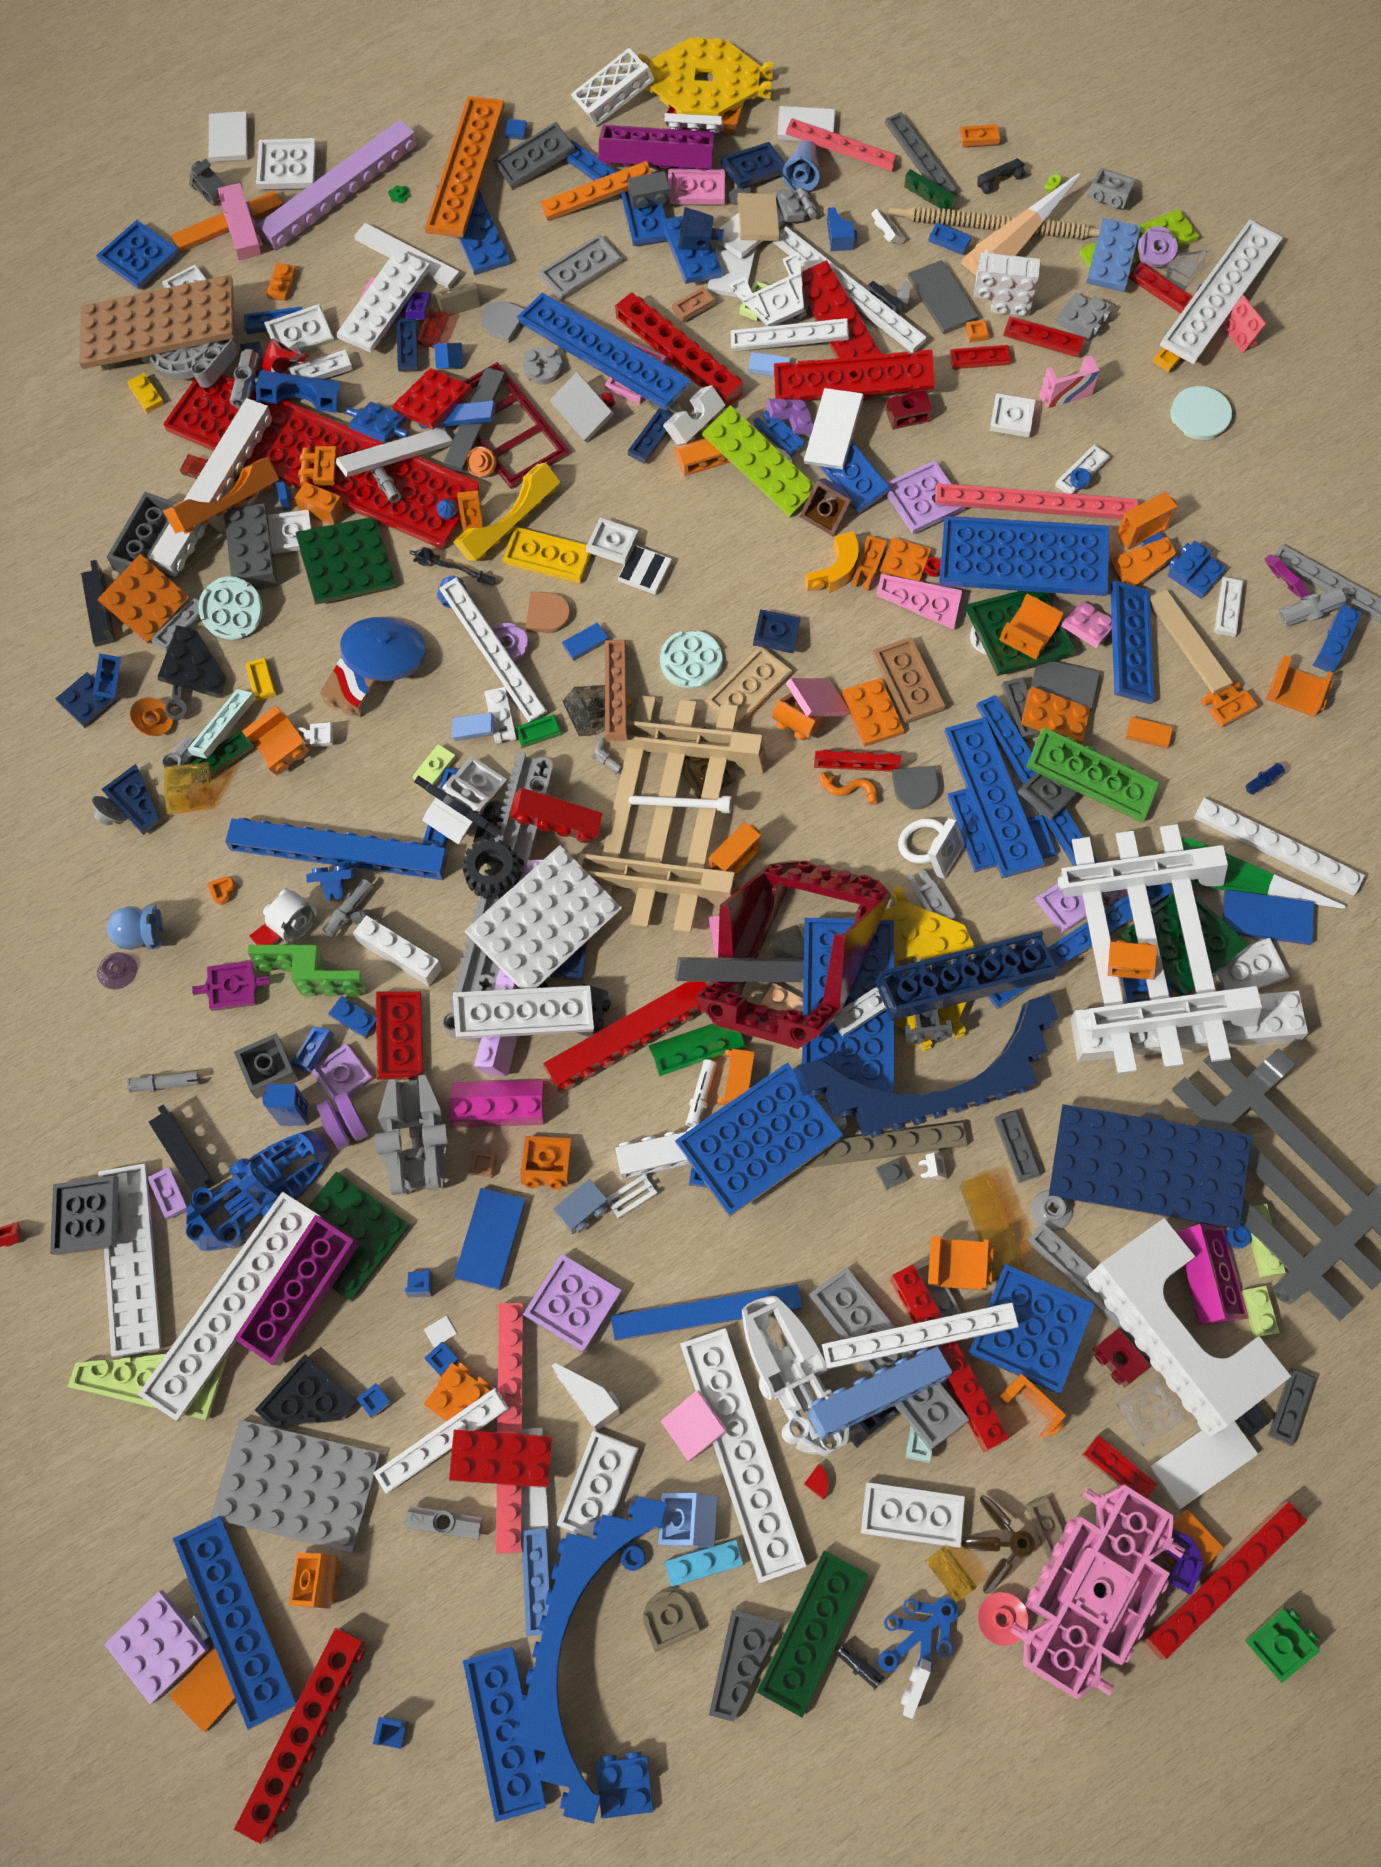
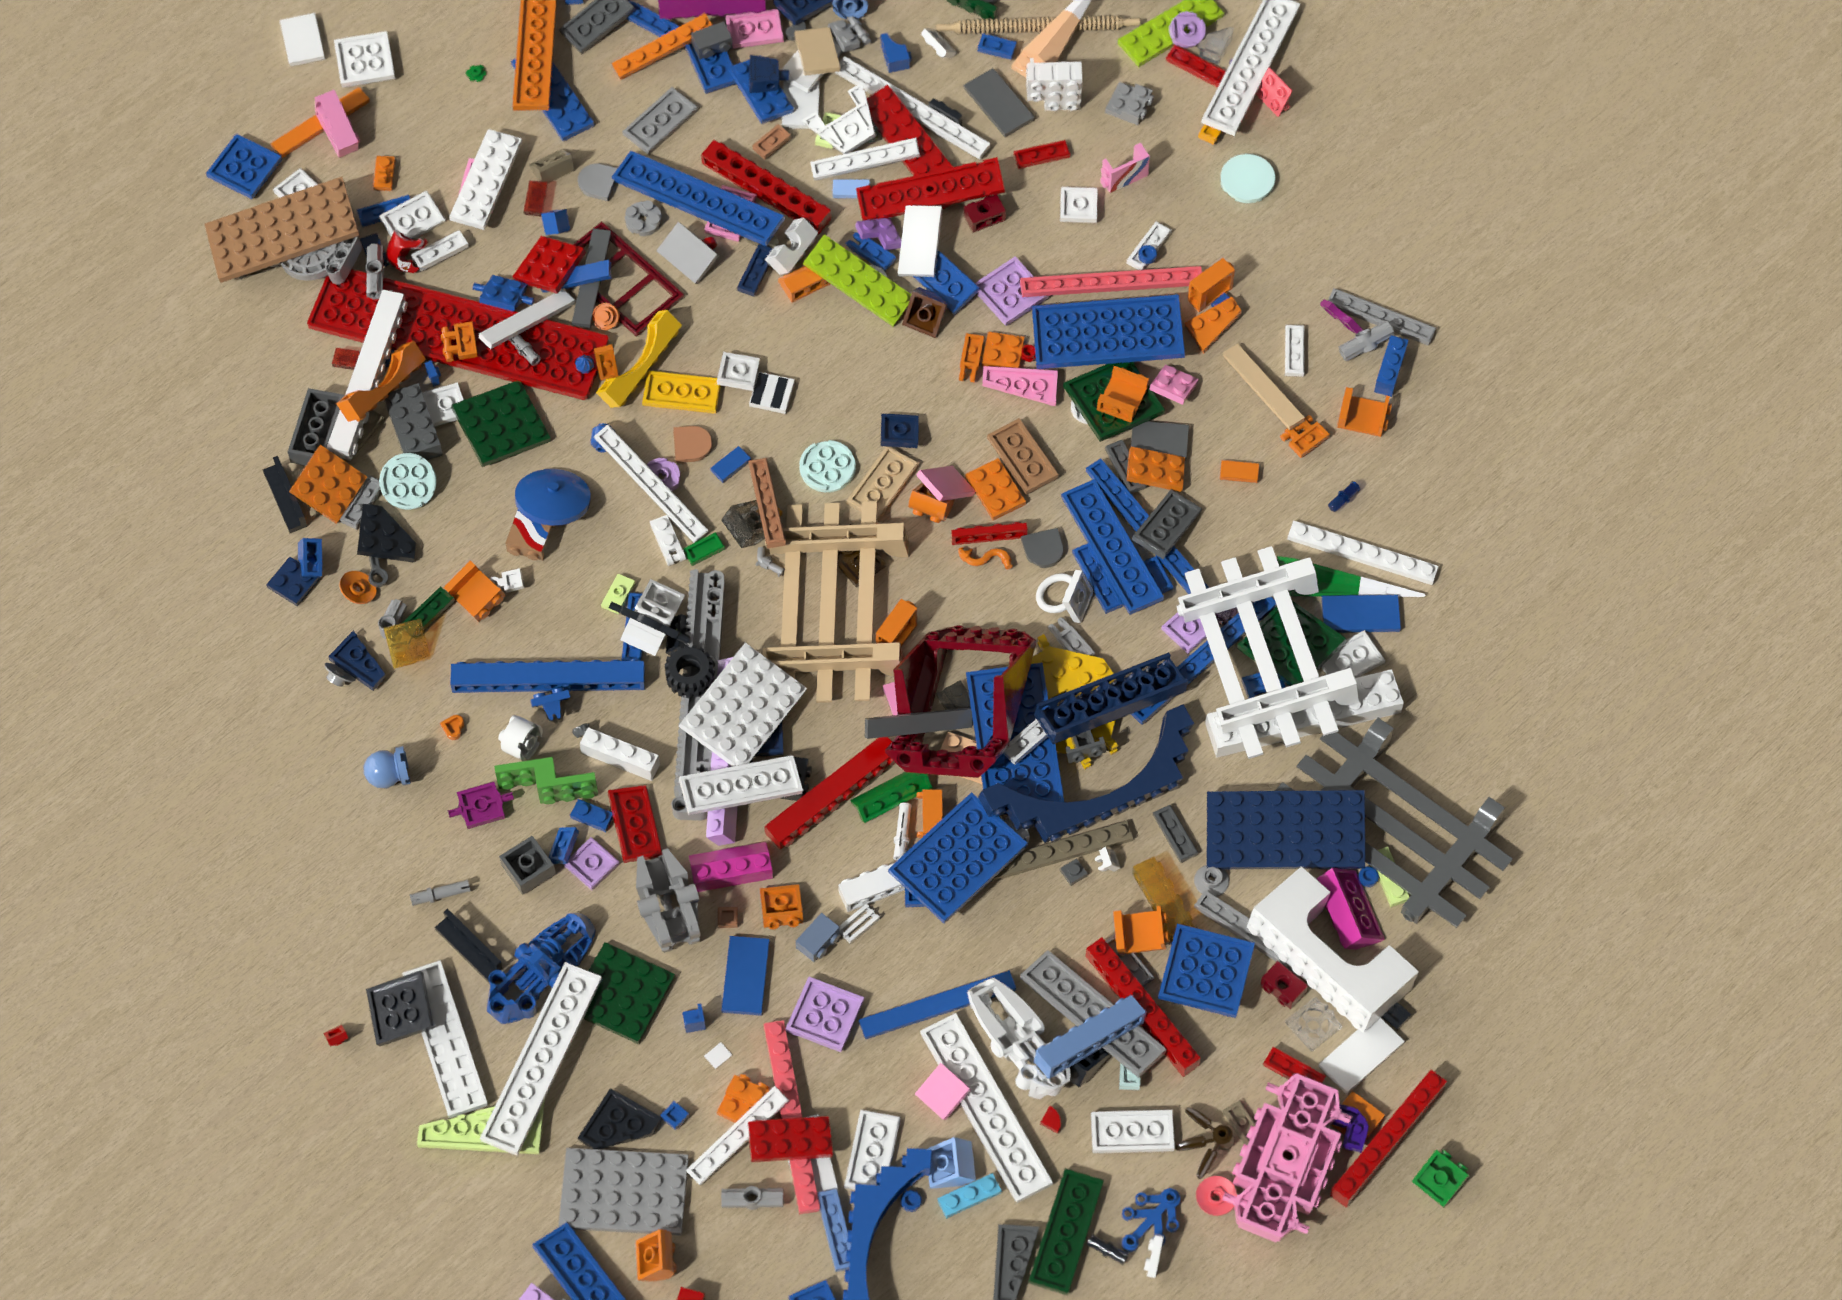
camera: 10 degrees left, 5 degrees down
(123, 976) = (379, 815): clear purple piece -> none
(145, 393) = (281, 296): yellow plate -> none
(168, 1193) = (465, 981): lavender plate -> none
(205, 181) = (295, 89): dark grey pin -> none
(221, 723) = (423, 583): light aqua plate -> none
(260, 679) = (446, 540): yellow tile -> none
(265, 936) = (499, 758): red tile -> none
(274, 387) = (447, 274): blue arch -> none
(286, 1104) = (553, 891): blue brick -> none
(297, 1290) = (595, 1037): magenta brick -> none
(320, 503) = (467, 375): orange brick -> none
(337, 185) = (418, 73): lavender brick -> none
(338, 1122) = (603, 898): medium lavender wheel -> none
(342, 915) = (564, 731): light grey pin -> none
(387, 245) = (479, 126): white tile -> none
(407, 345) = (515, 216): dark blue plate -> none
(418, 305) = (518, 179): dark purple plate -> none
(426, 556) = (573, 409): black piece -> none
(441, 1358) = (723, 1075): blue tile -> none
(473, 726) = (646, 553): tile -> none
(555, 815) = (736, 618): red brick -> none
(591, 1398) = (853, 1081): white slope -> none
(669, 1619) = (949, 1241): dark tan tile -> none
(721, 804) = (878, 587): white piece -> none
(842, 570) = (947, 370): light orange arch -> none
(903, 295) = (962, 107): light grey plate -> none
(920, 1335) = (1115, 989): white plate -> none
(951, 1573) = (1169, 1169): clear yellow plate -> none
(977, 331) = (1035, 130): orange tile -> none
(1039, 1400) = (1219, 1025): orange panel -> none
(1043, 336) = (1096, 127): red plate -> none
(1092, 774) = (1194, 514): bright green plate -> none
(1113, 254) = (1148, 42): medium blue plate -> none
(1132, 642) = (1213, 394): blue plate -> none
(1132, 960) = (1247, 664): orange brick -> none
(1195, 569) = (1261, 321): blue plate -> none
(1260, 1312) = (1393, 932): yellowish green plate -> none
(1291, 1407) = (1427, 1002): dark grey tile -> none

